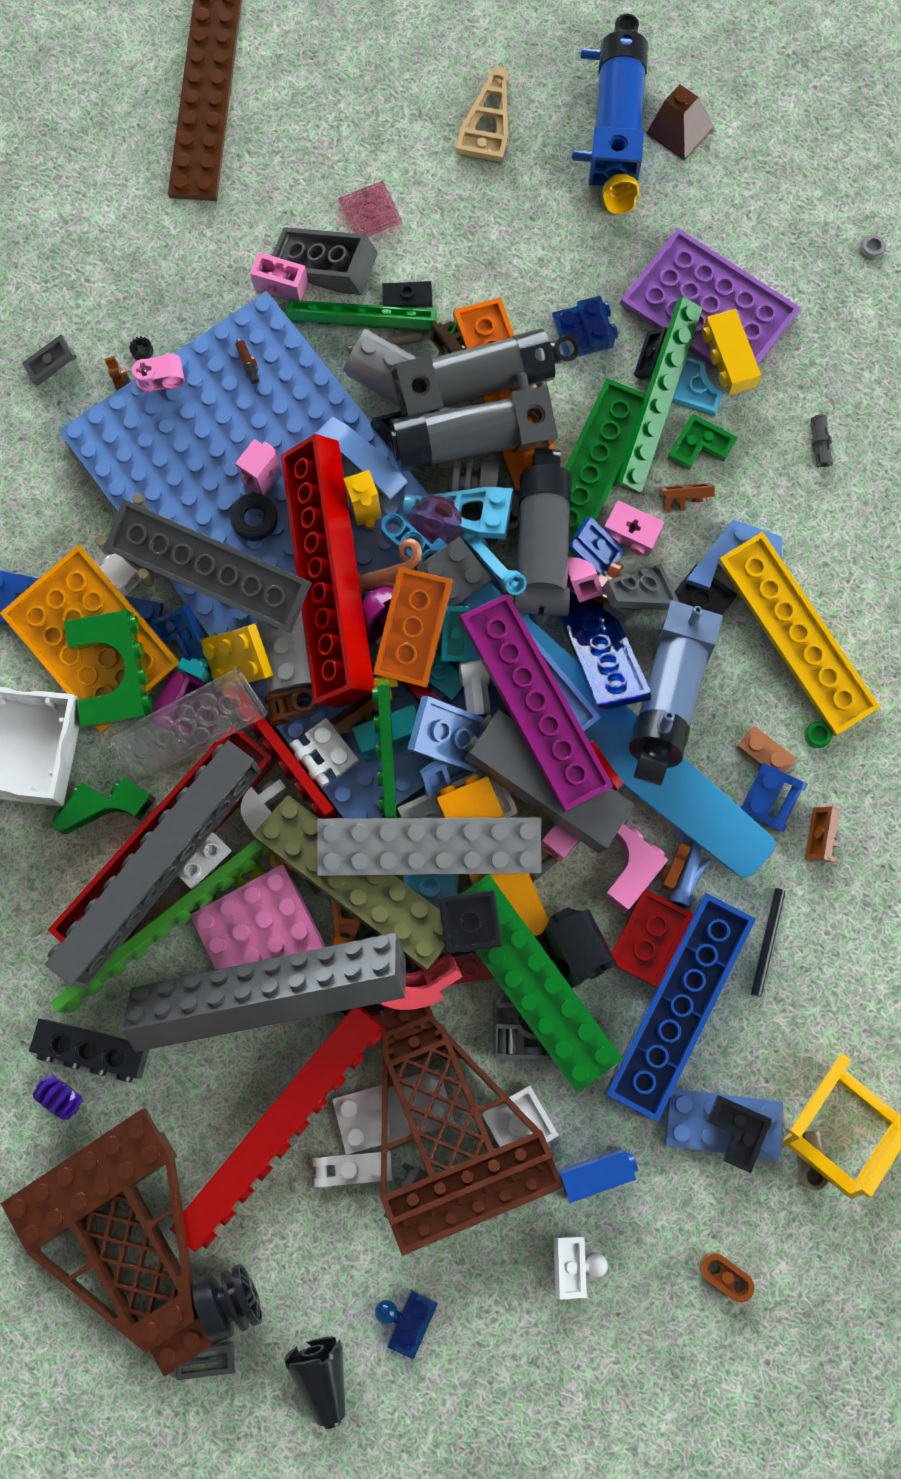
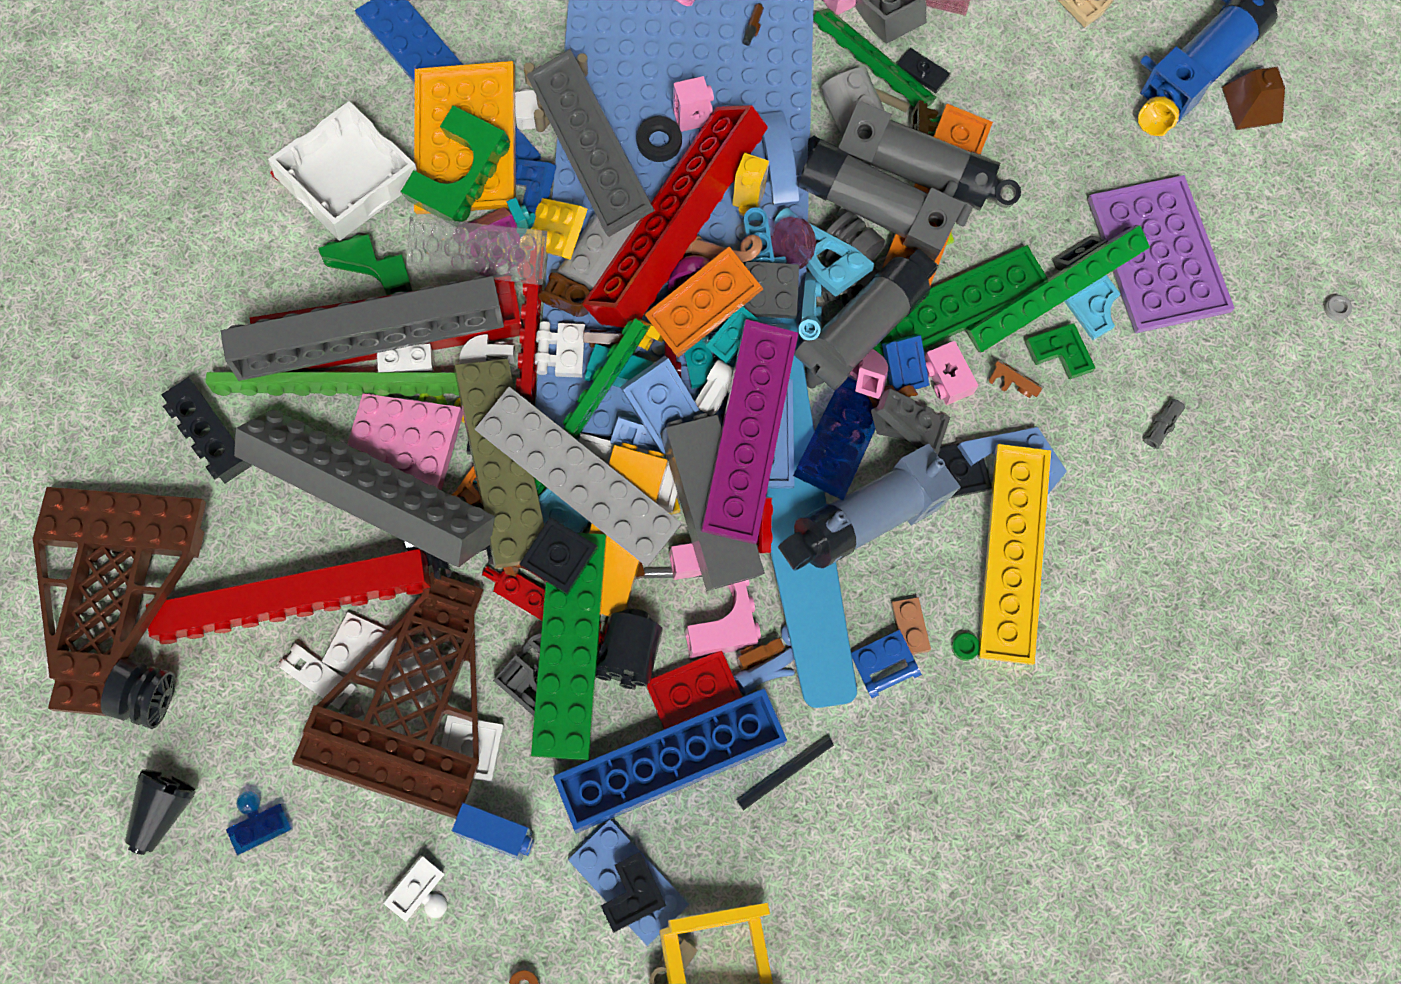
camera: 30 degrees right, 5 degrees down
(57, 1097) = (152, 444): dark purple gear -> none
(229, 1357) = (107, 738): dark grey tile -> none
(425, 987) = (483, 581): coral arch -> none
(587, 324) = (1044, 196): clear blue plate -> none
(731, 352) = (1144, 297): yellow brick -> none
(822, 834) = (902, 722): dark orange plate -> none

